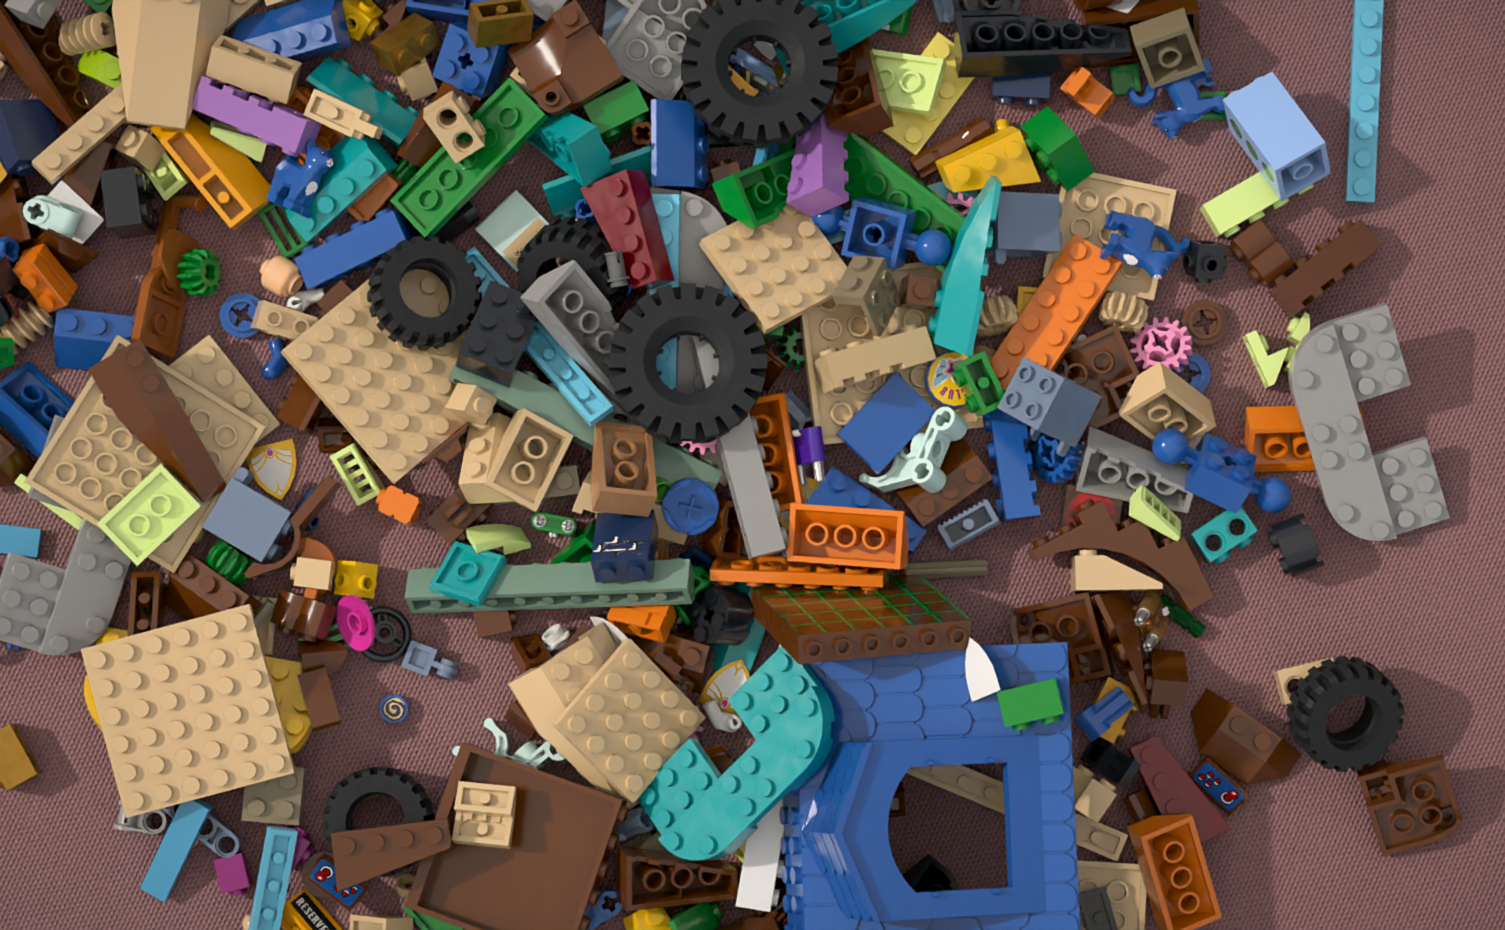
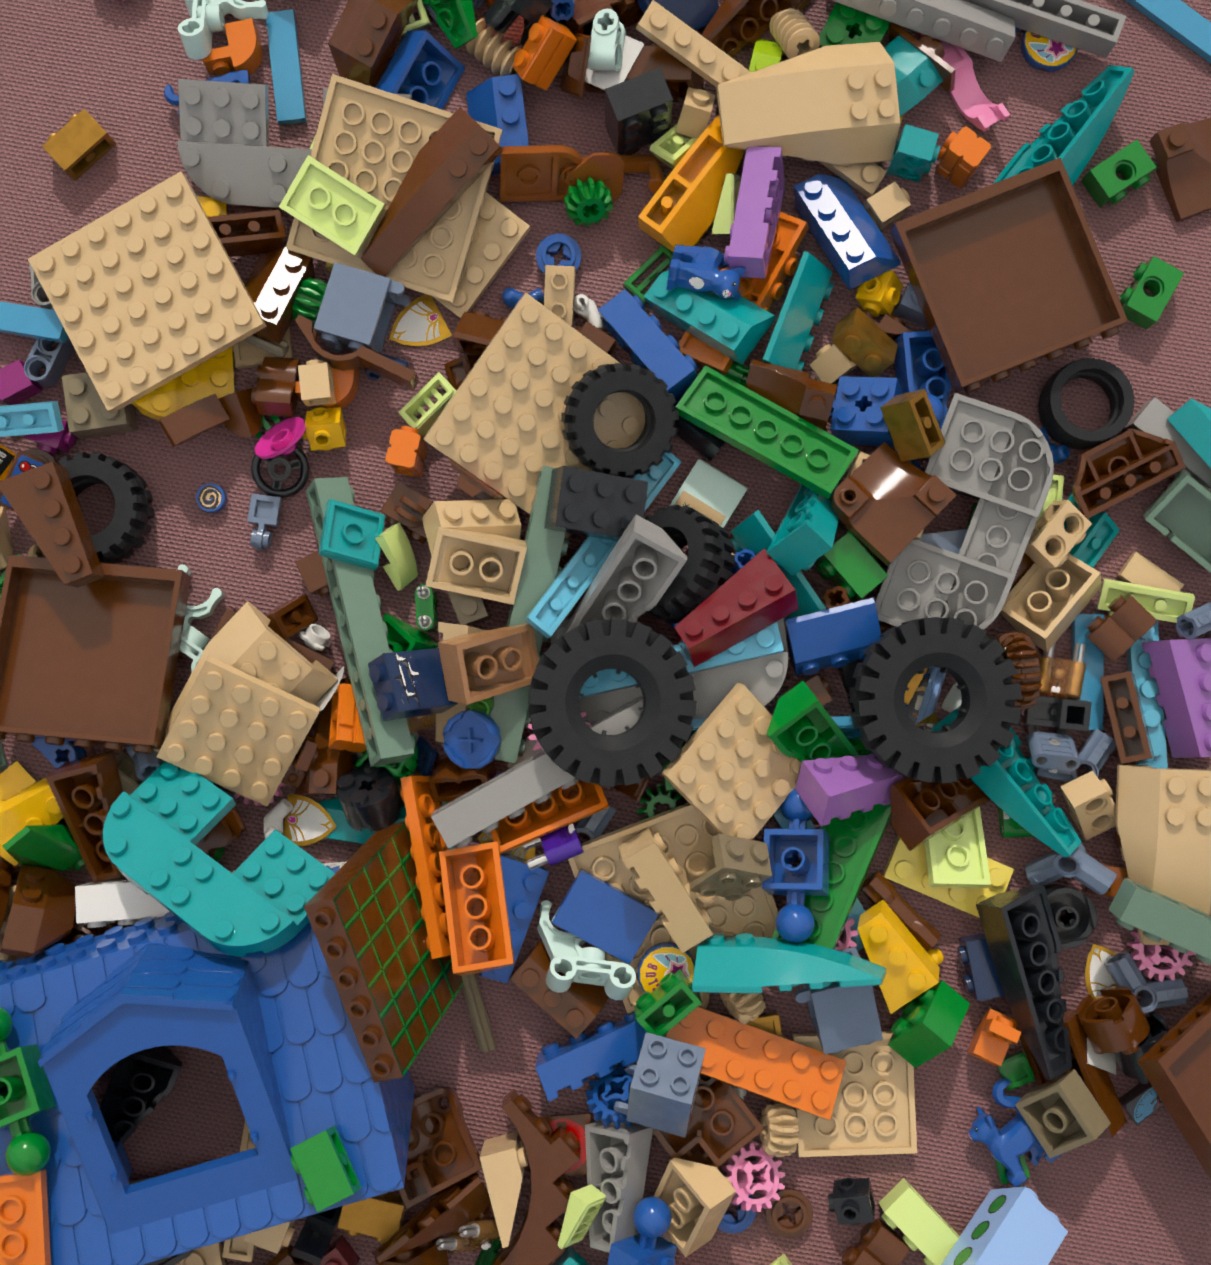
camera: 80 degrees right, 0 degrees up
(253, 69) = (800, 197): tan brick -> none
(281, 276) = (604, 281): light nougat head -> none
(341, 116) = (776, 293): tan hinge -> none
(449, 128) = (789, 399): tan brick -> none
(471, 403) = (520, 495): tan brick -> none
(484, 814) = (112, 610): tan slope -> none
(616, 269) = (689, 605): dark grey pin -> none
(917, 292) = (745, 917): reddish brown brick -> none
(967, 525) = (523, 1022): sand blue brick -> none
(979, 672) = (347, 1101): white sticker -> none
(1098, 717) = (366, 1217): blue piece -> none
(1137, 242) = (853, 1129): blue animal -> none

